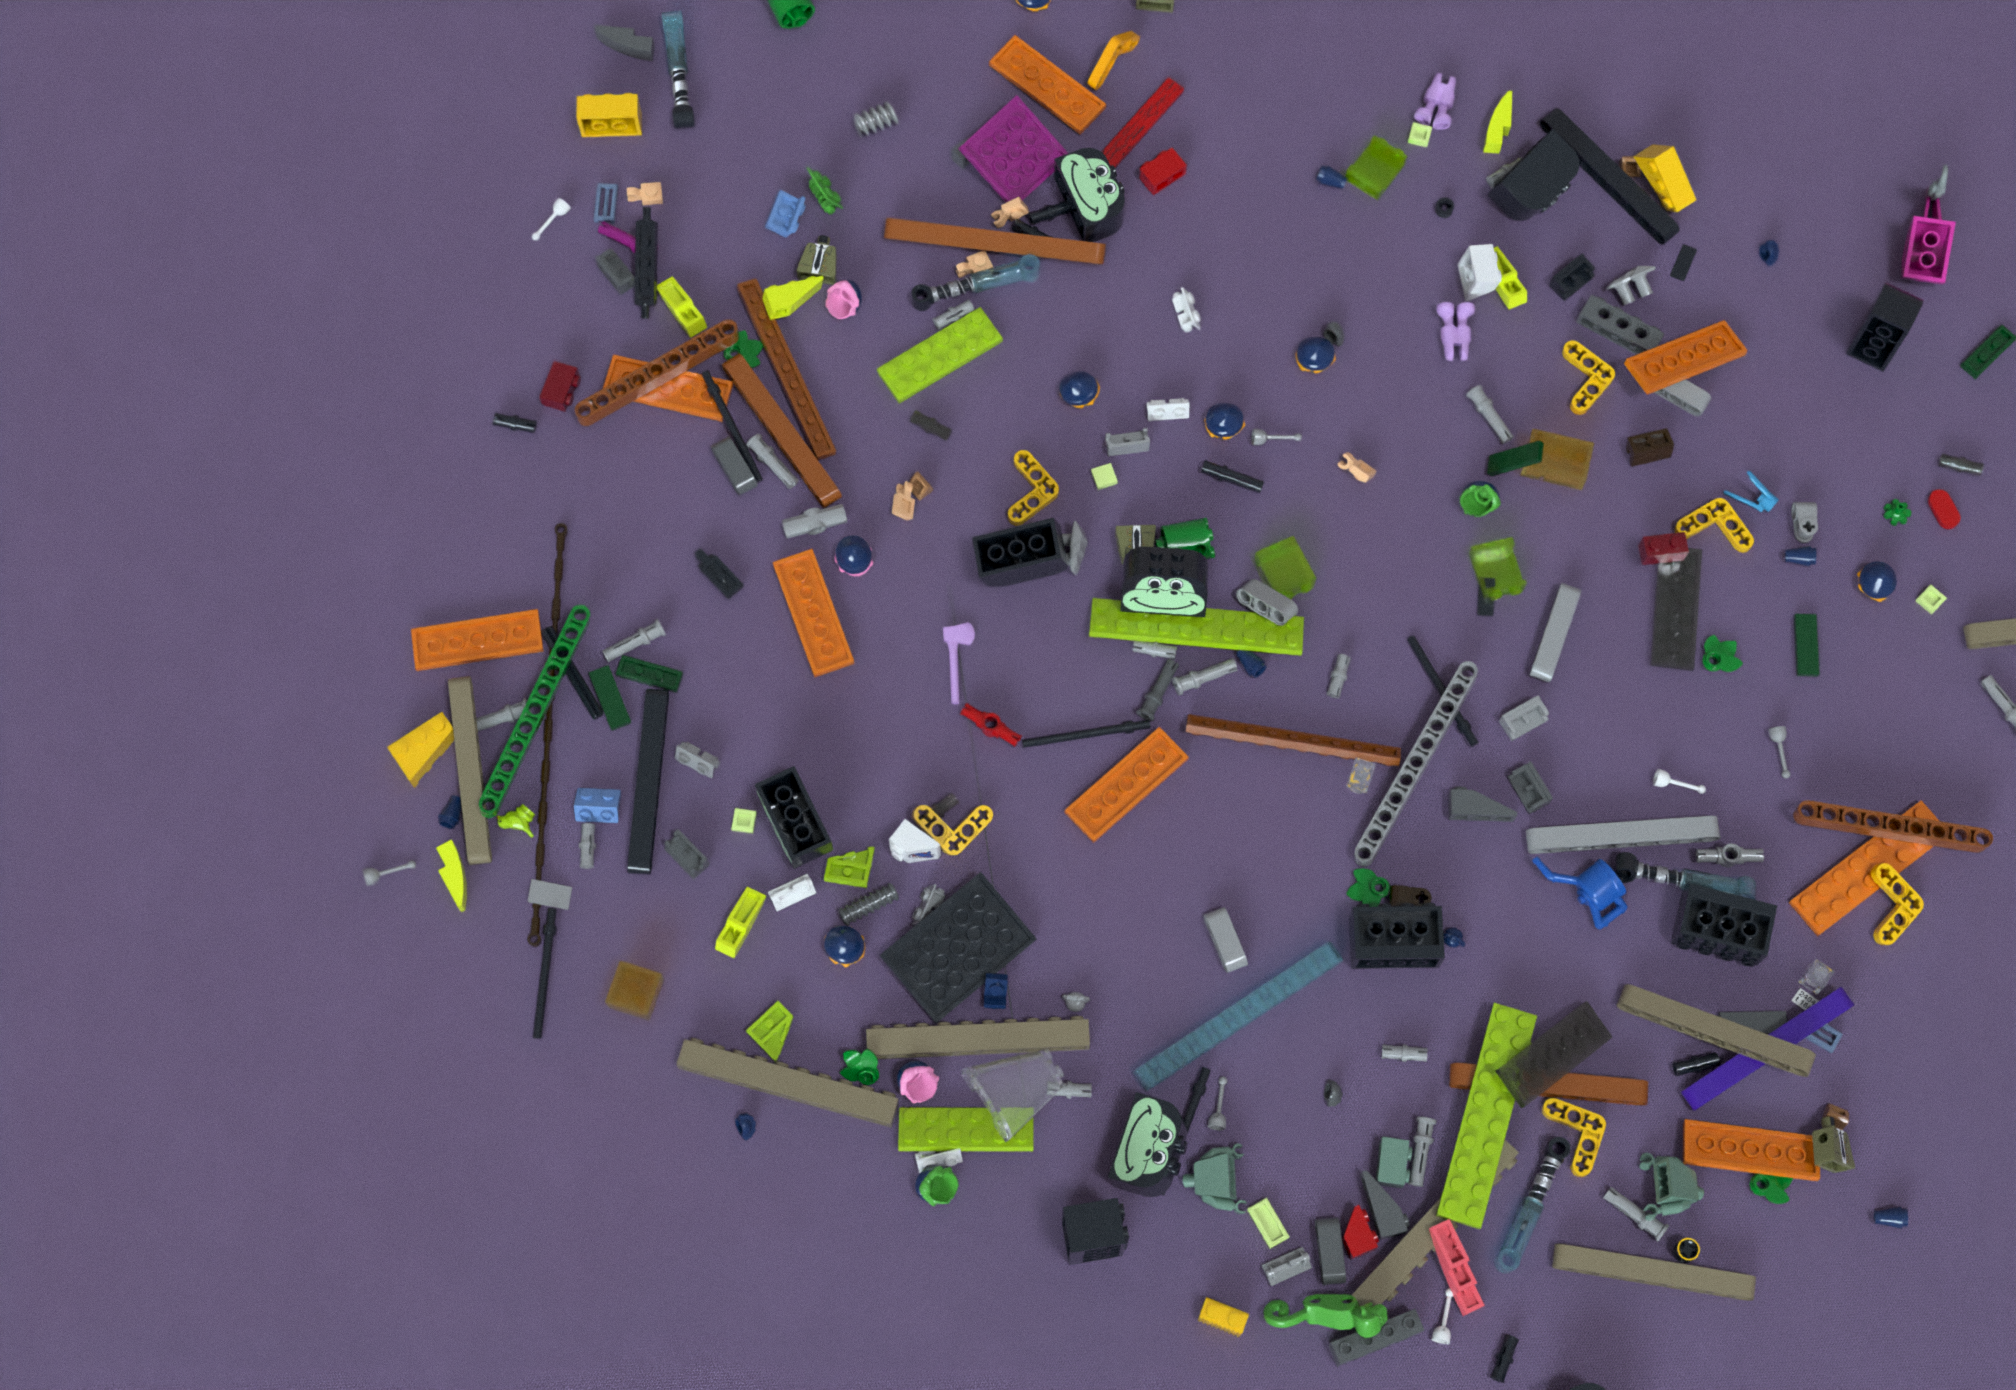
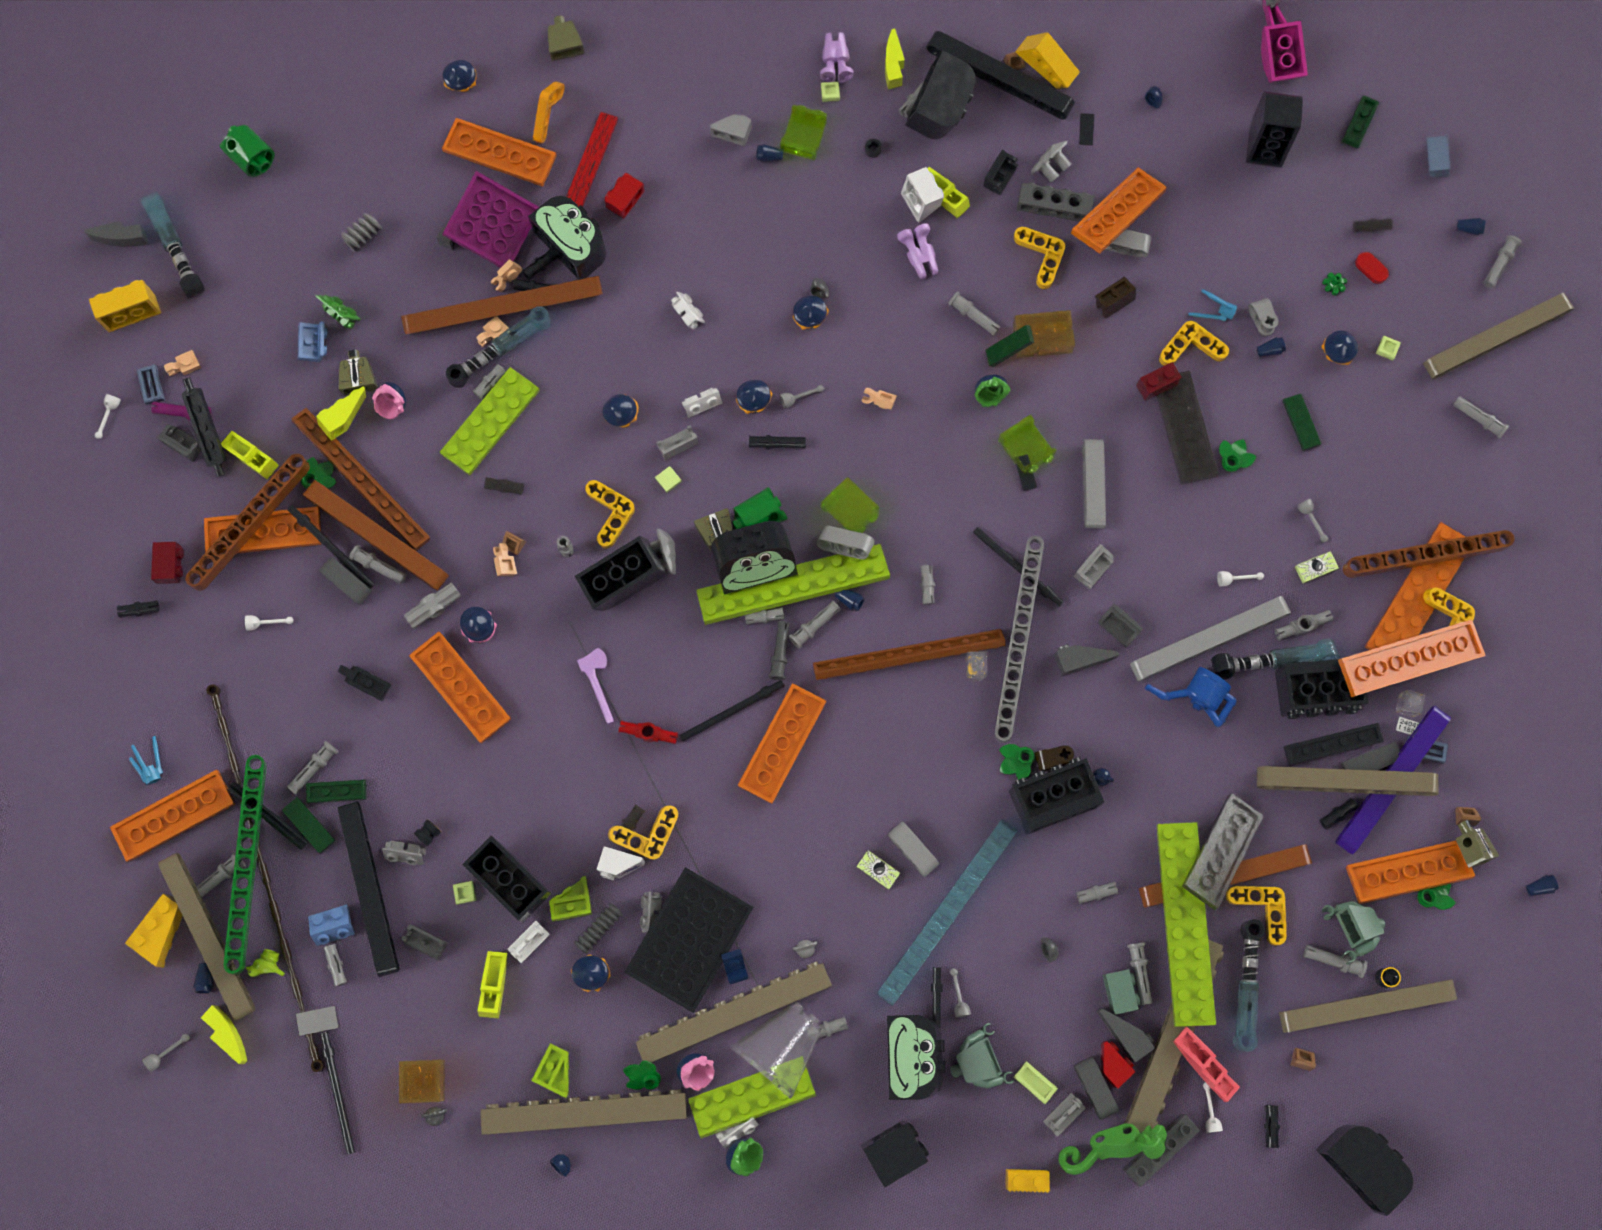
camera: 20 degrees left, 5 degrees up
(469, 591) = (148, 774): none -> dark azure plant
(626, 476) = (253, 622): none -> white hinge
(634, 1031) = (434, 1115): none -> dark grey piece
(728, 746) = (427, 832): none -> black wheel
(972, 506) = (564, 546): none -> light grey pin
(1181, 948) = (878, 870): none -> tile
(1301, 140) = (732, 129): none -> light grey slope
(1563, 1303) = (1303, 1059): none -> medium nougat slope
(1716, 990) = (1333, 744): none -> black plate
(1766, 801) = (1316, 567): none -> tile
(1832, 925) = (1411, 658): none -> orange plate

